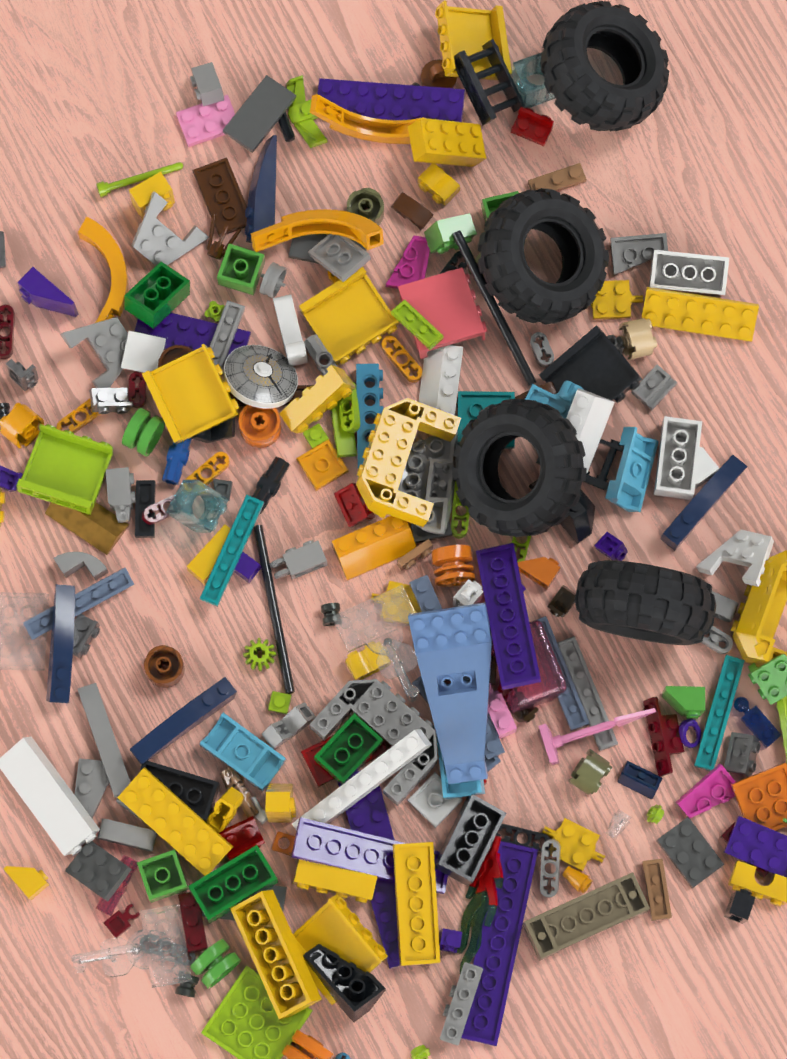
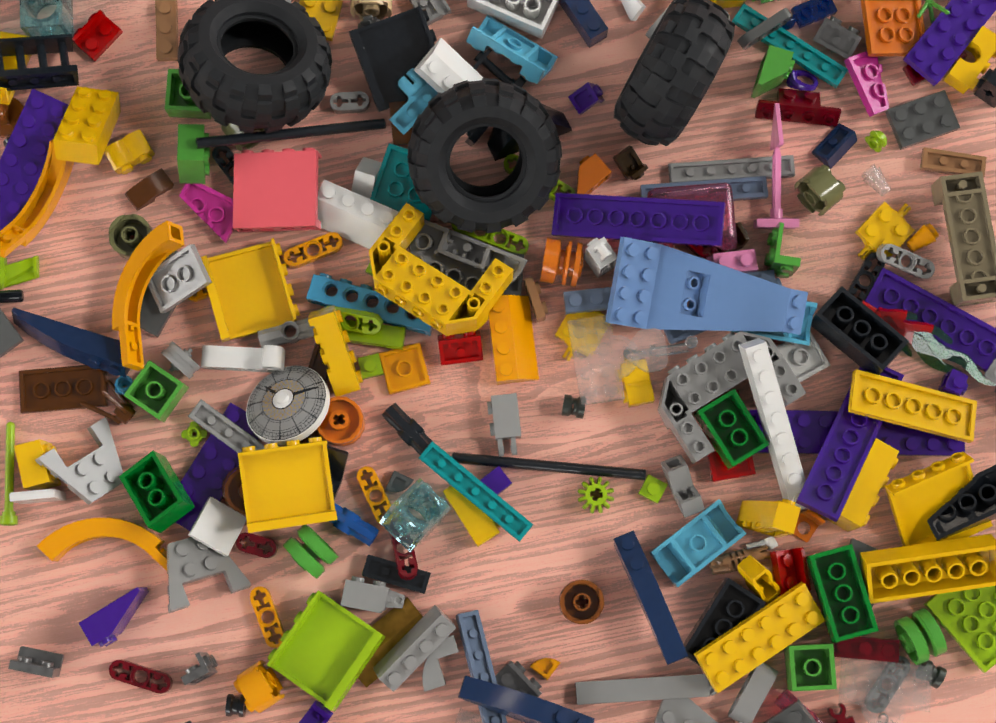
camera: 75 degrees left, 5 degrees up
(87, 540) = (414, 648): none -> light grey brick
(101, 655) = (545, 667): none -> light orange tile
(110, 400) = (260, 578): bracket -> none
(127, 205) = (37, 496): none -> white tile
(239, 239) = (121, 382): none -> dark azure plate
(417, 324) = (285, 219): lime tile -> none
(479, 381) = (366, 176): none -> white slope
(509, 757) = (782, 265): none -> bright green bracket
(724, 683) = (765, 28): none -> dark grey beam

